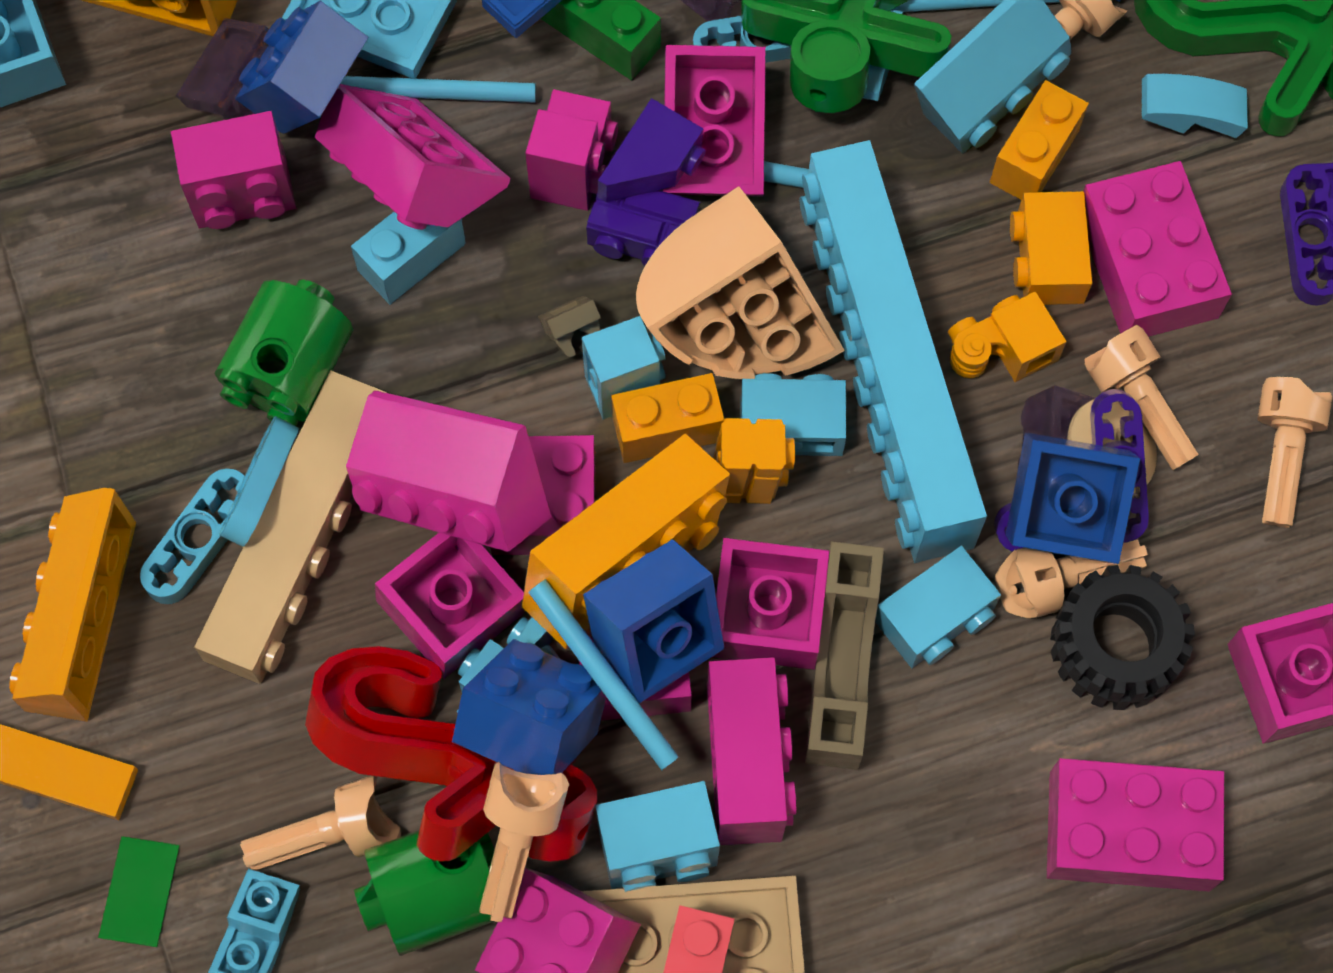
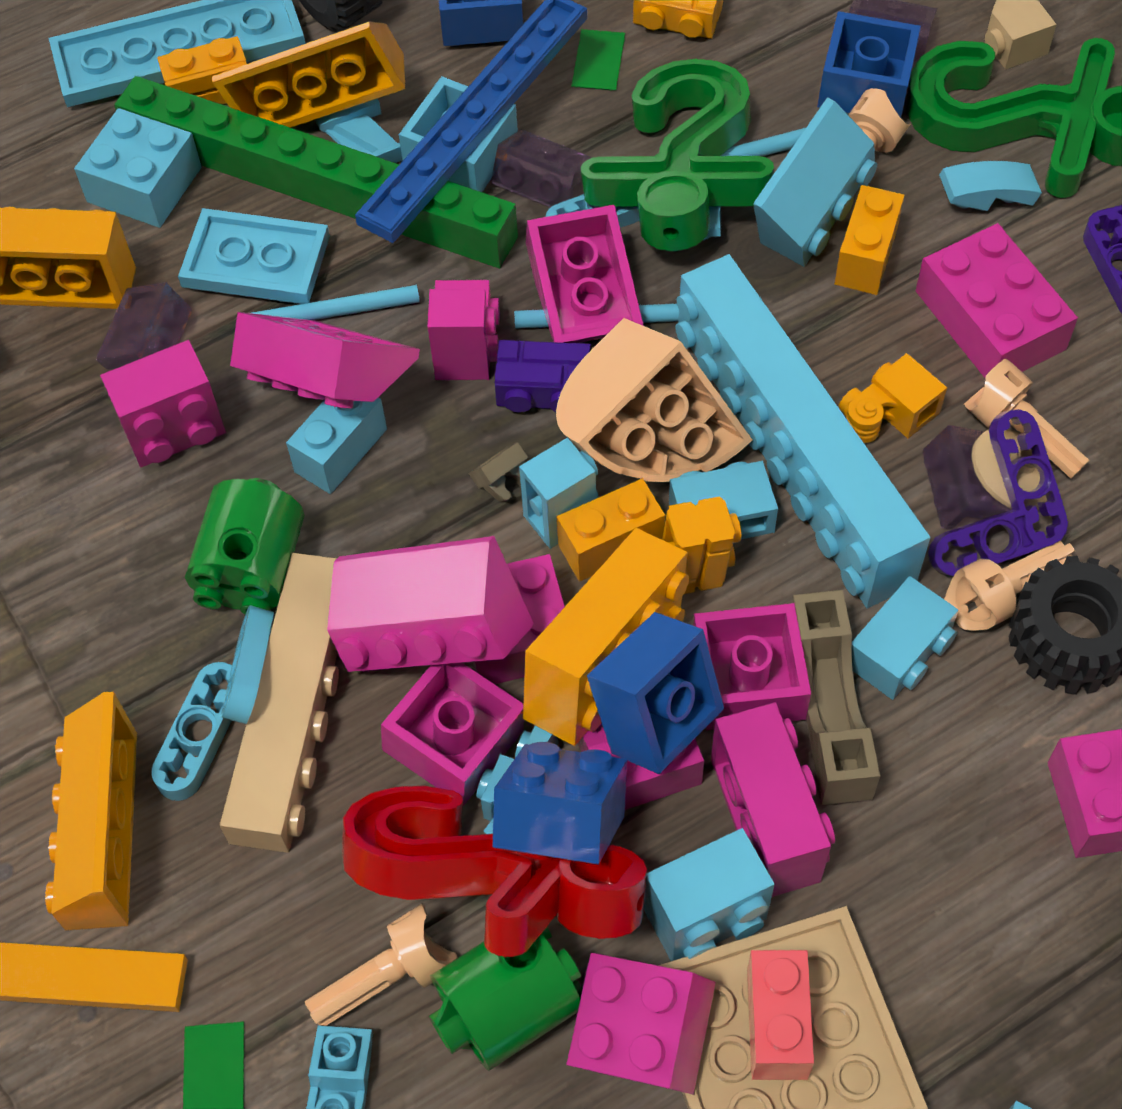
camera: 10 degrees left, 10 degrees down
(300, 66) = (206, 300): brick -> none
(522, 809) = (581, 884): light nougat piece -> none
(603, 674) = (621, 751): medium azure bar -> none
(653, 154) = (540, 308): dark purple slope -> none
(1052, 247) = (908, 317): light orange brick -> none
(1072, 498) = (999, 506): blue brick -> none

